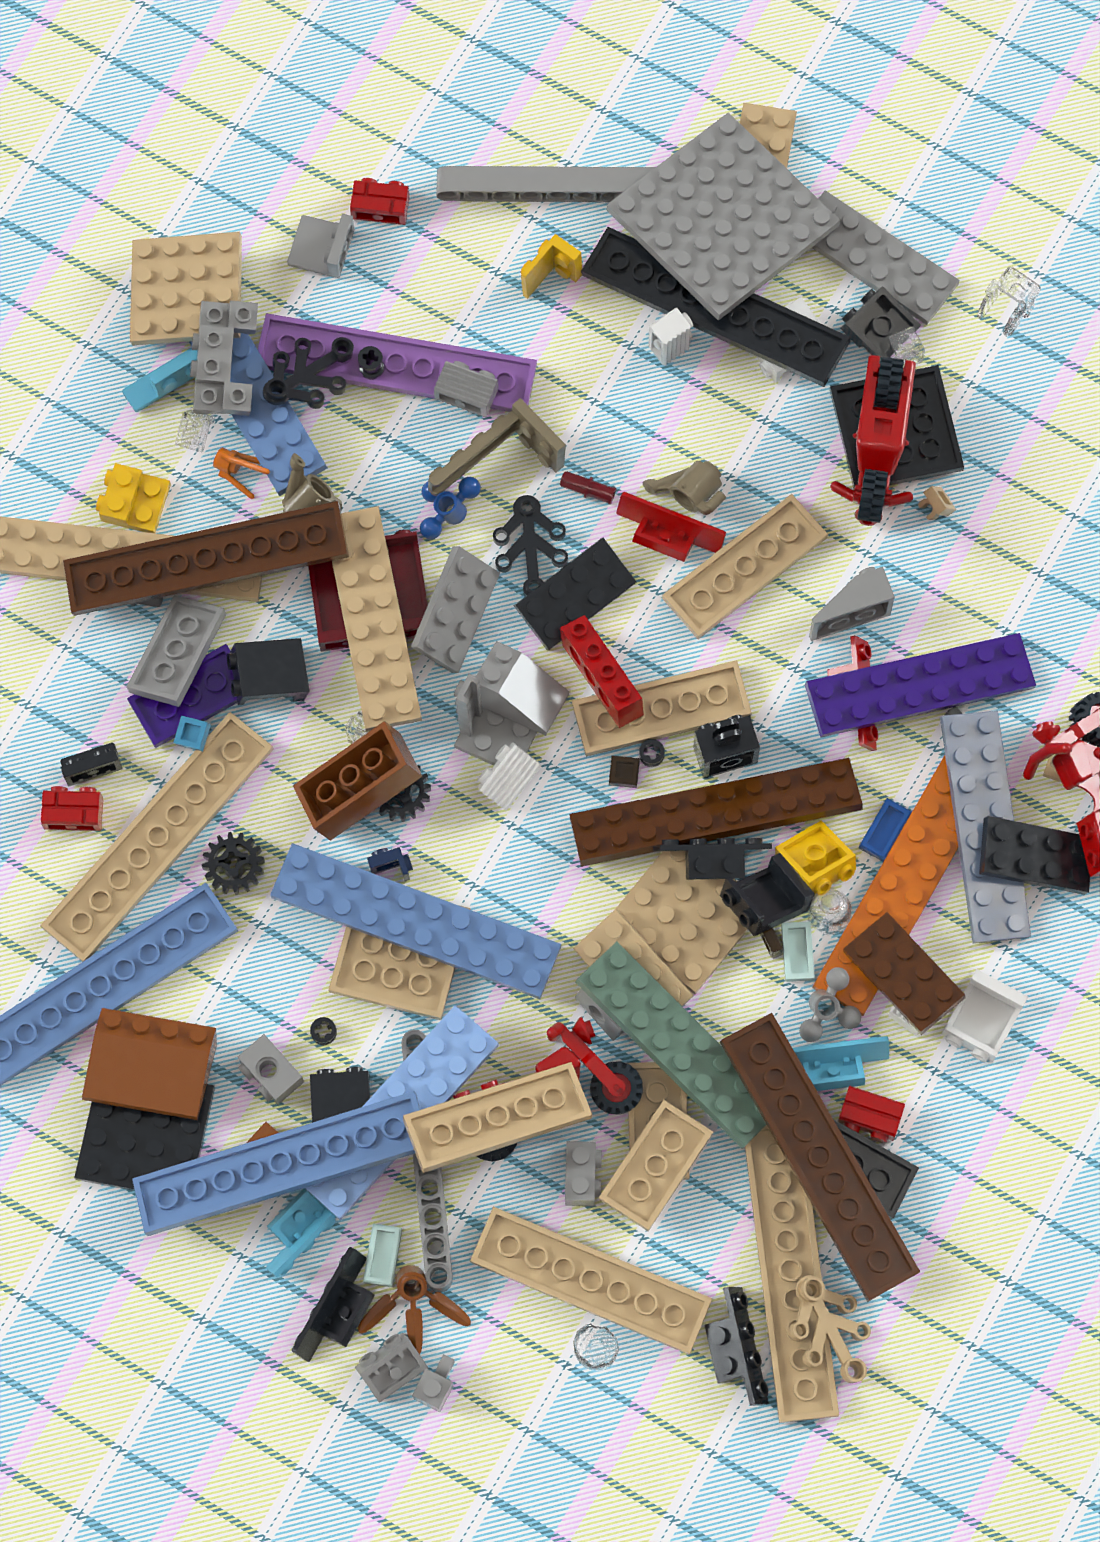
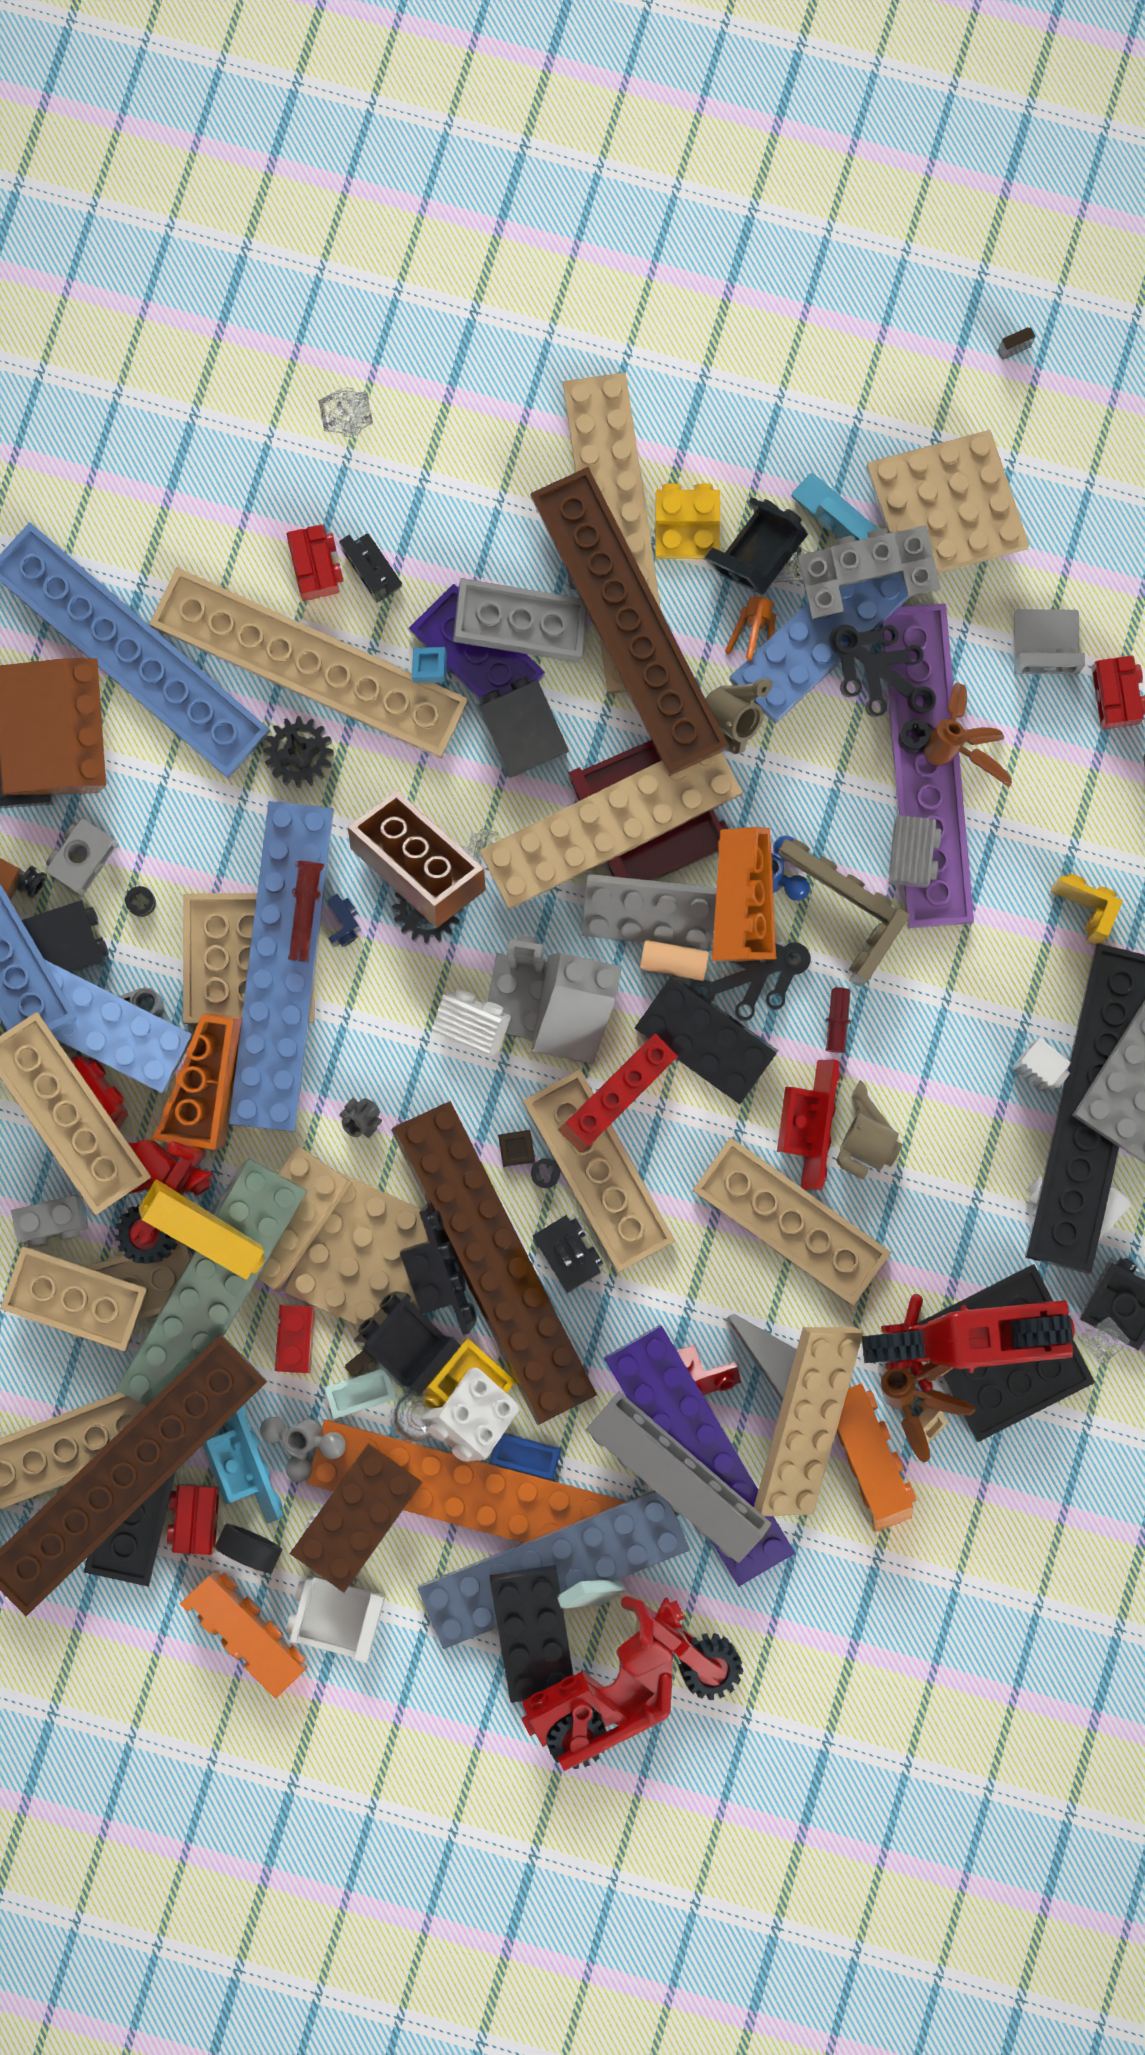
camera: 75 degrees right, 10 degrees up
(64, 202) = (1016, 343): none -> tile
(173, 443) = (760, 547): none -> black panel
(279, 1118) = (32, 881): none -> black bush
(363, 878) = (306, 894): none -> clear red pin
(381, 331) = (950, 736): none -> dark orange plant
(465, 524) = (744, 897): none -> orange wedge
(501, 601) = (674, 960): none -> light nougat brick
(504, 1011) = (204, 1086): none -> orange wedge
(564, 889) = (360, 1117): none -> dark grey gear
(627, 1028) = (201, 1230): none -> yellow slope
(738, 990) = (295, 1339): none -> red brick
(845, 856) = (472, 1417): none -> white bracket
(904, 511) = (905, 1395): none -> dark orange plant
(907, 1071) = (248, 1548): none -> black tyre
(915, 585) = (808, 1420): none -> tan plate
(935, 699) = (678, 1477): none -> light grey brick
(955, 551) = (872, 1460): none -> orange wedge
(978, 1094) = (246, 1633): none -> orange wedge
(1014, 798) = (590, 1593): none -> light aqua tile

